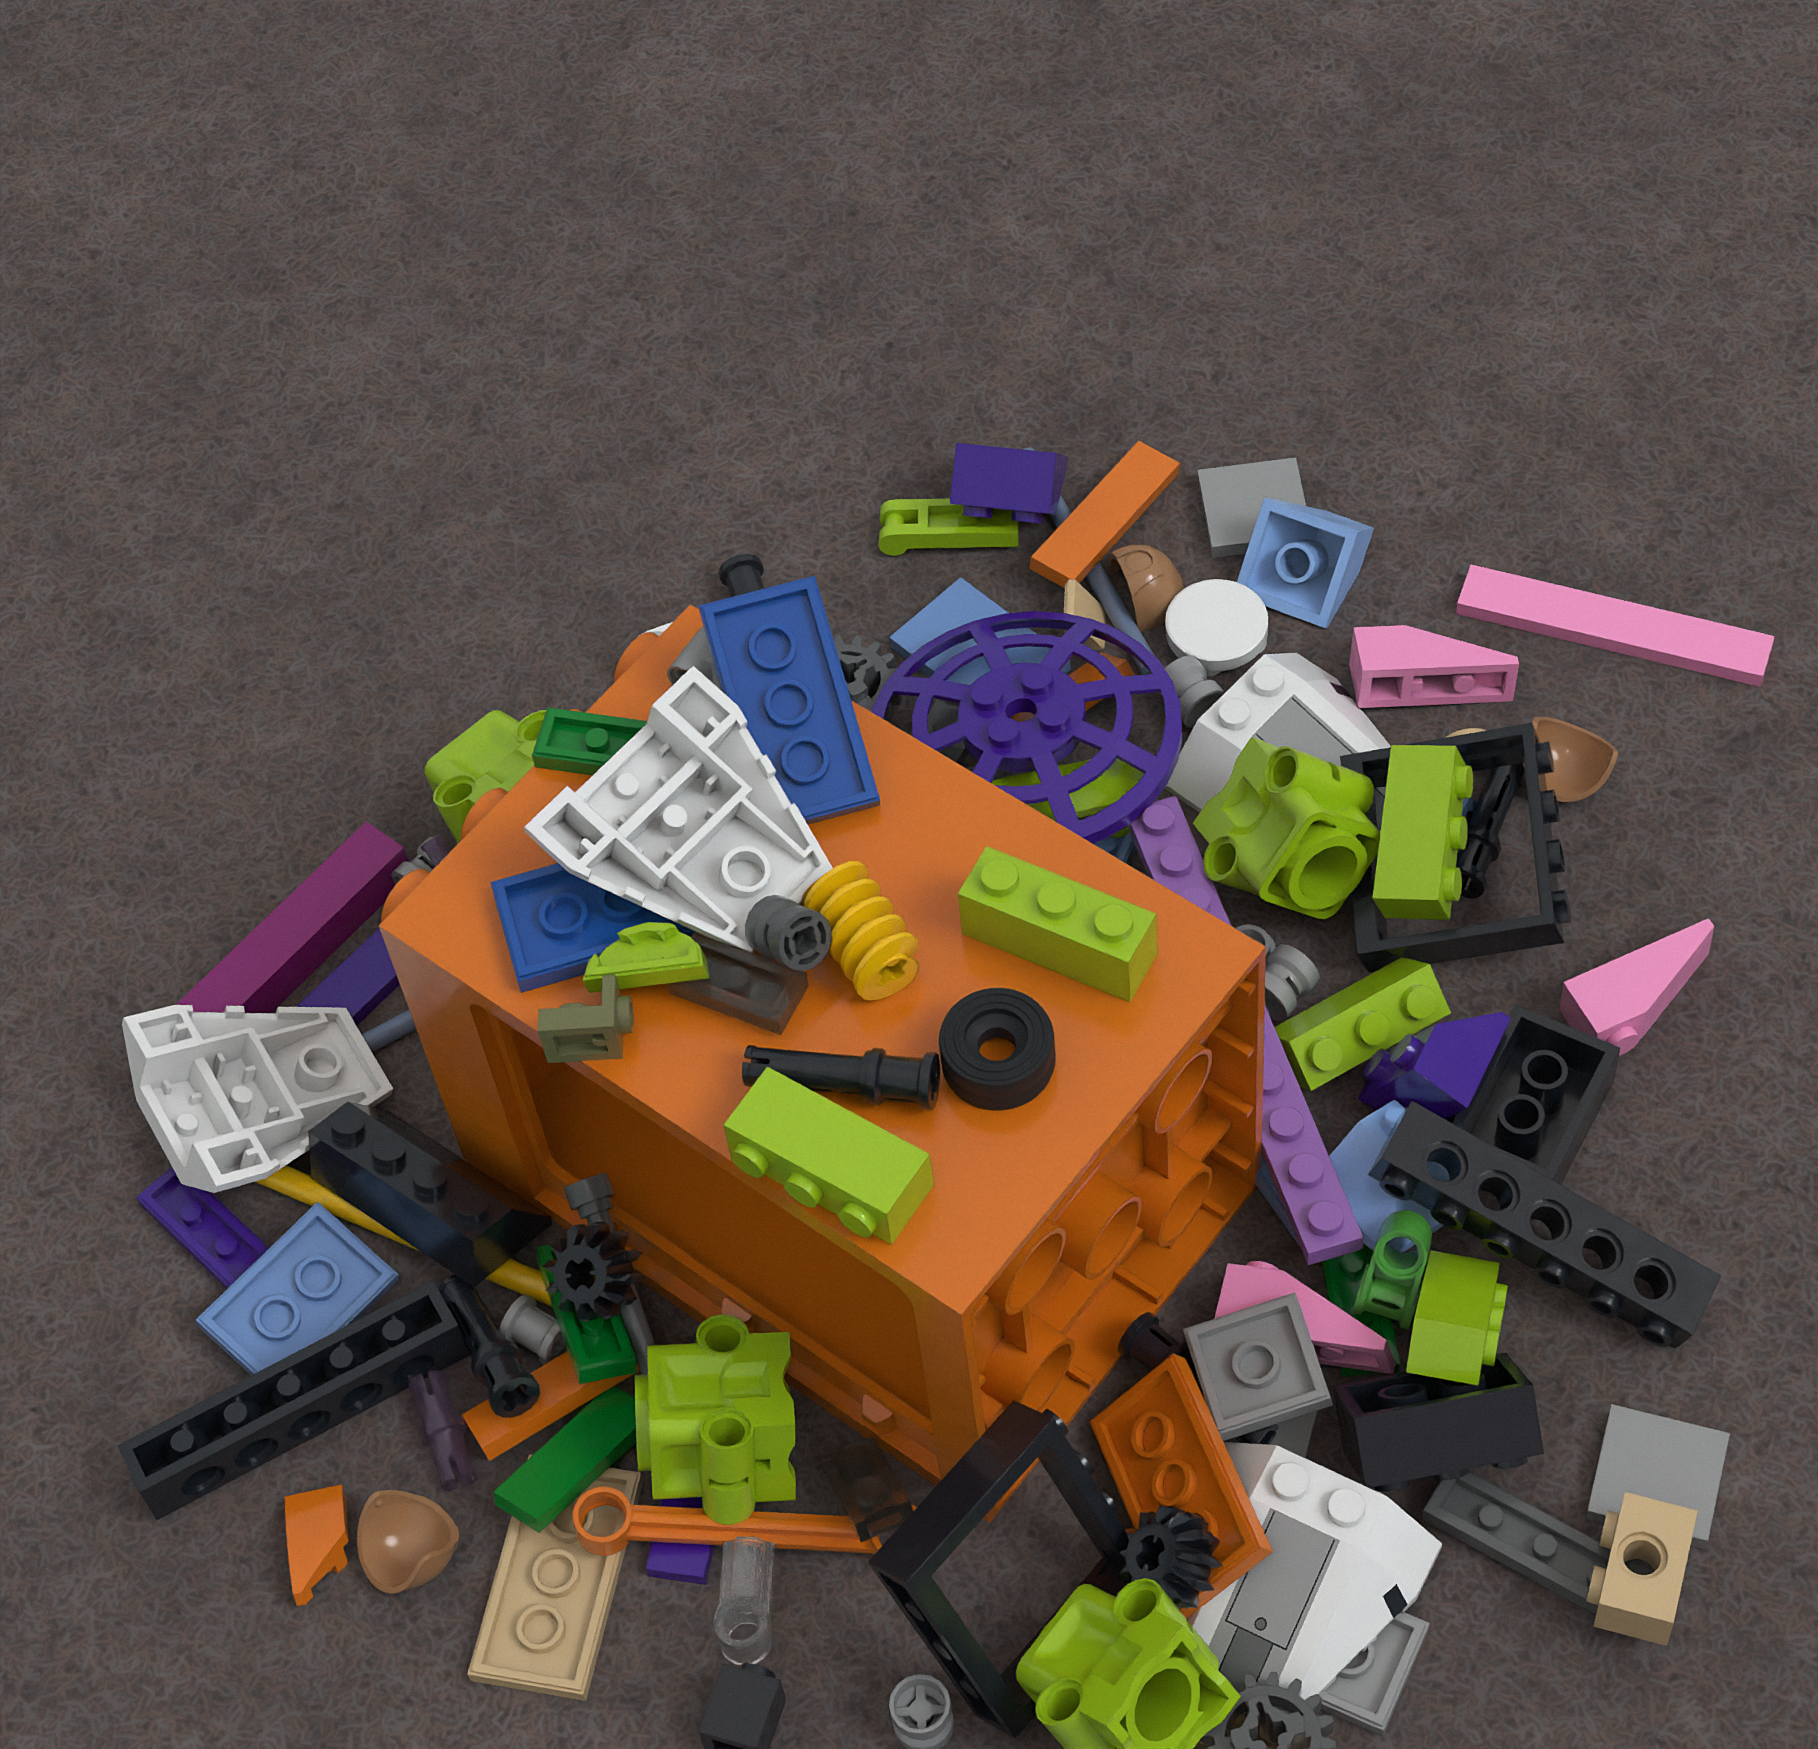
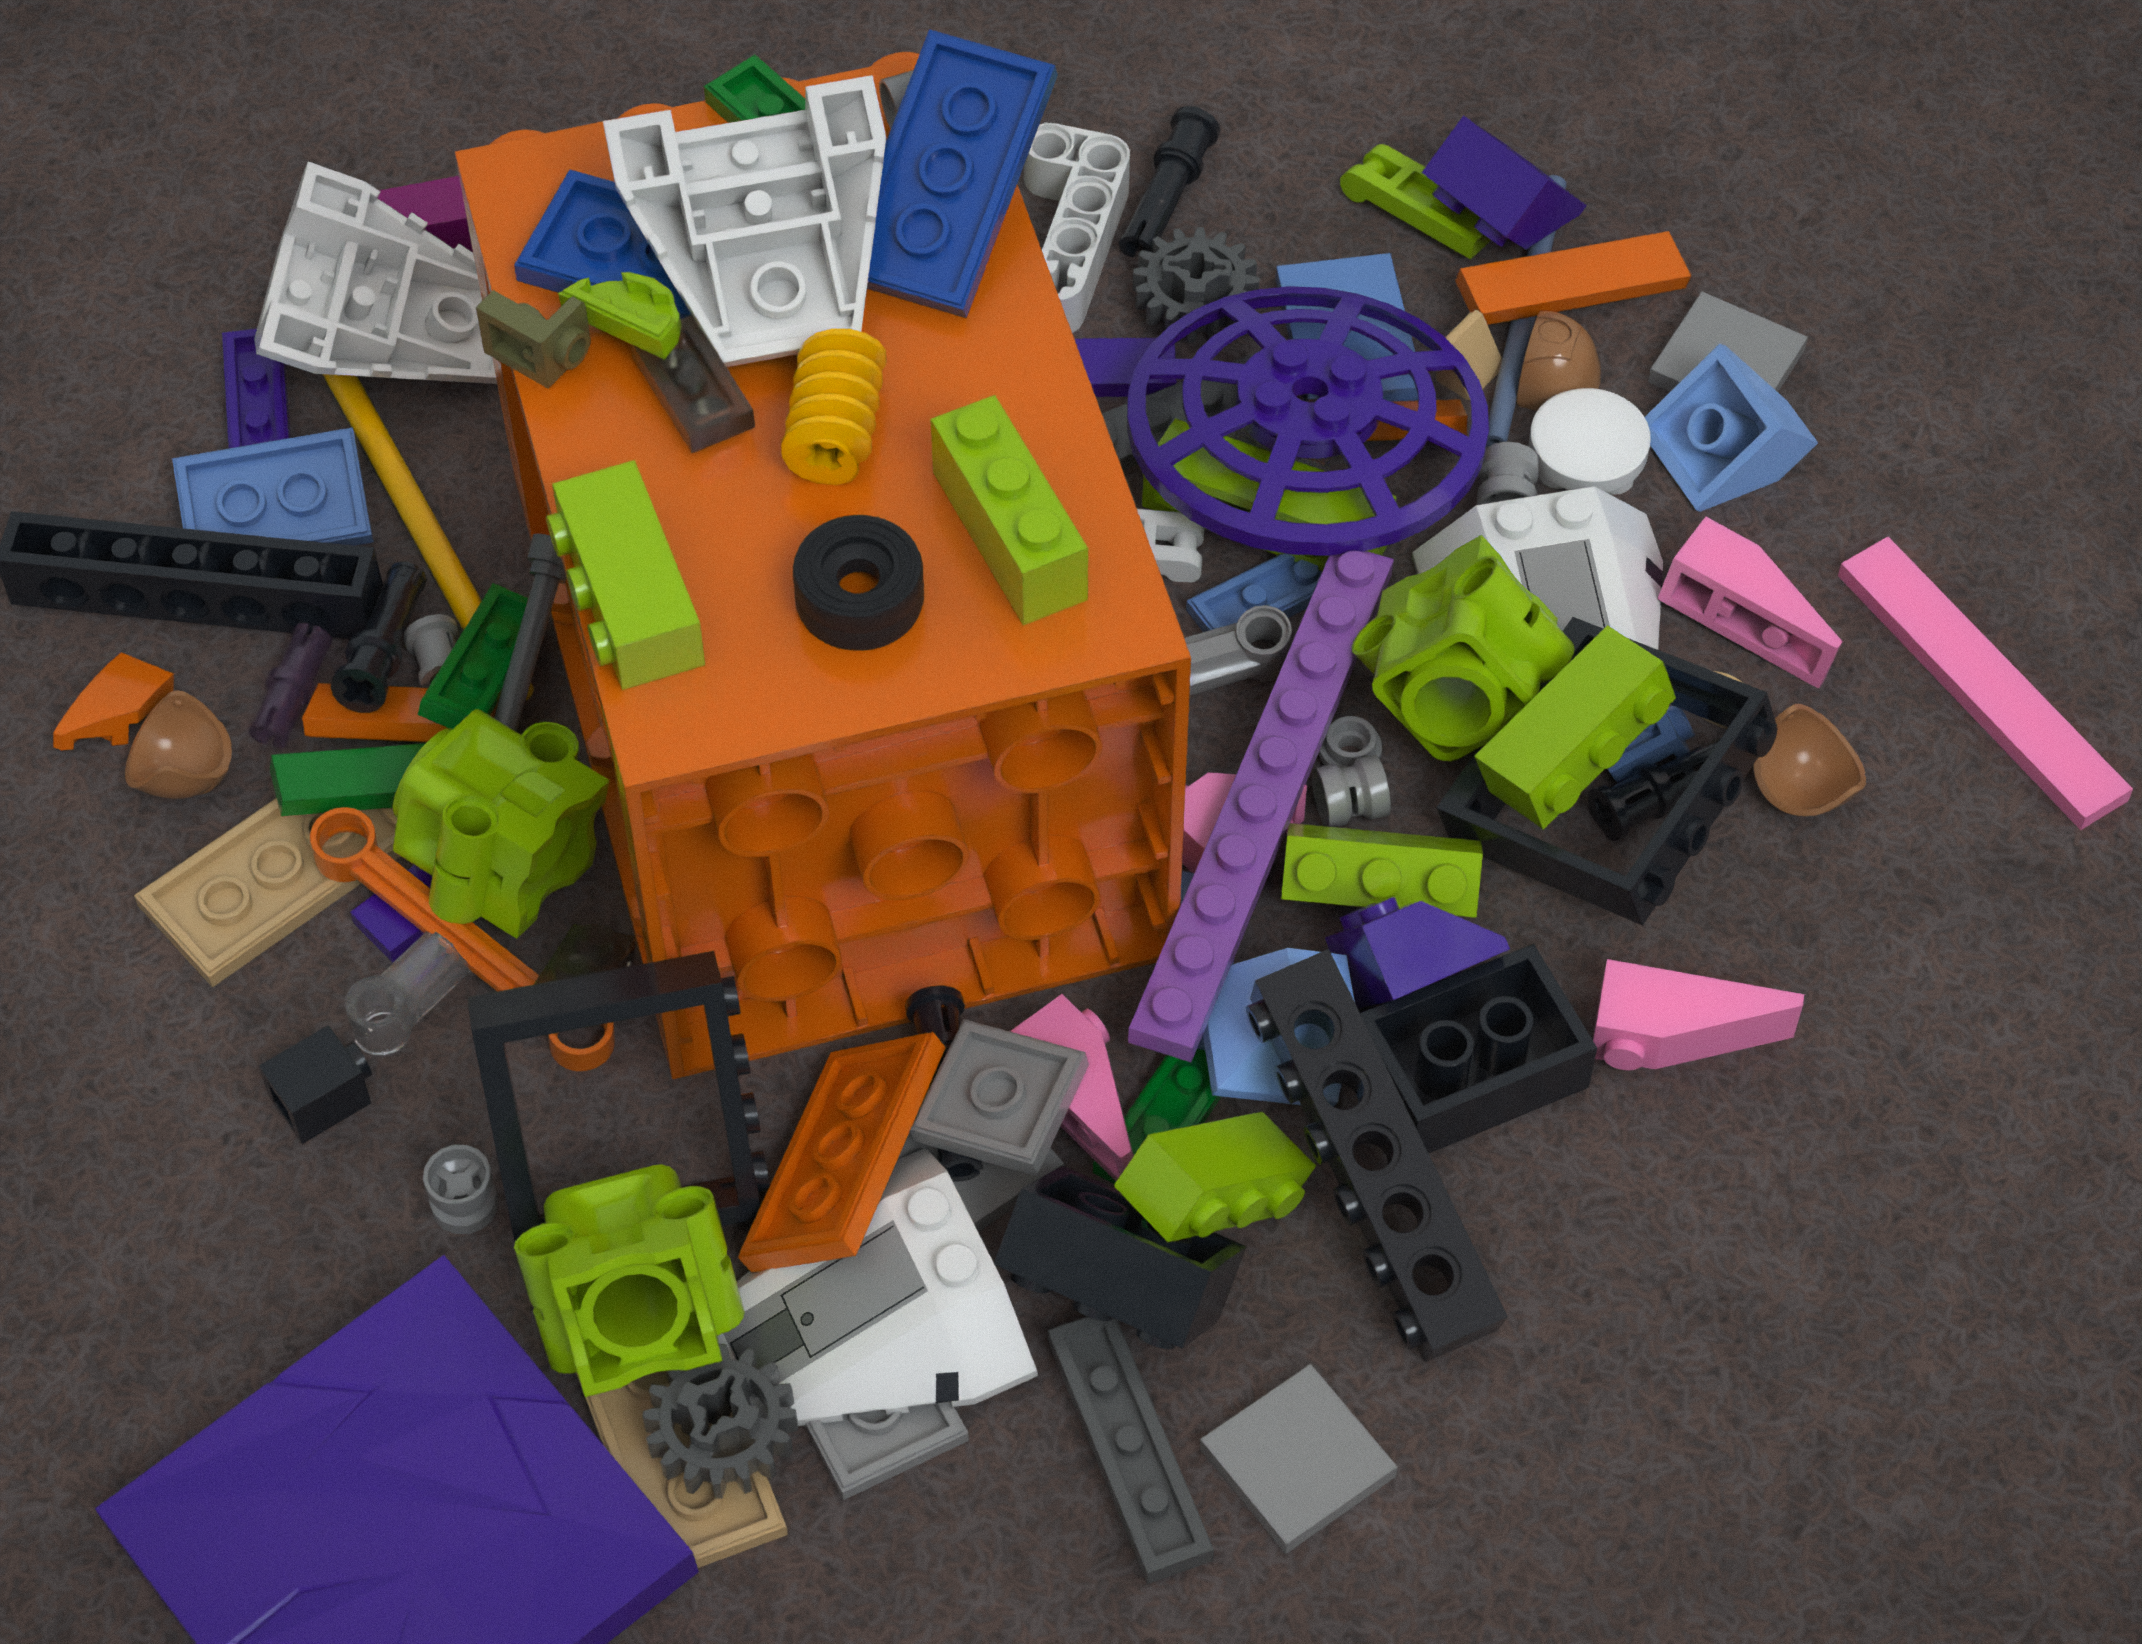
camera: 30 degrees right, 0 degrees up
(422, 1191) = (446, 473): black slope -> none
(575, 1273) = (498, 622): black gear -> none
(788, 932) = (755, 347): dark grey wheel -> none
(871, 1076) = (728, 533): black pin -> none
(1172, 1551) = (765, 1198): black gear -> none
(1394, 1277) = (1198, 1093): bright green piece -> none
(1634, 1602) = (1173, 1551): tan brick -> none

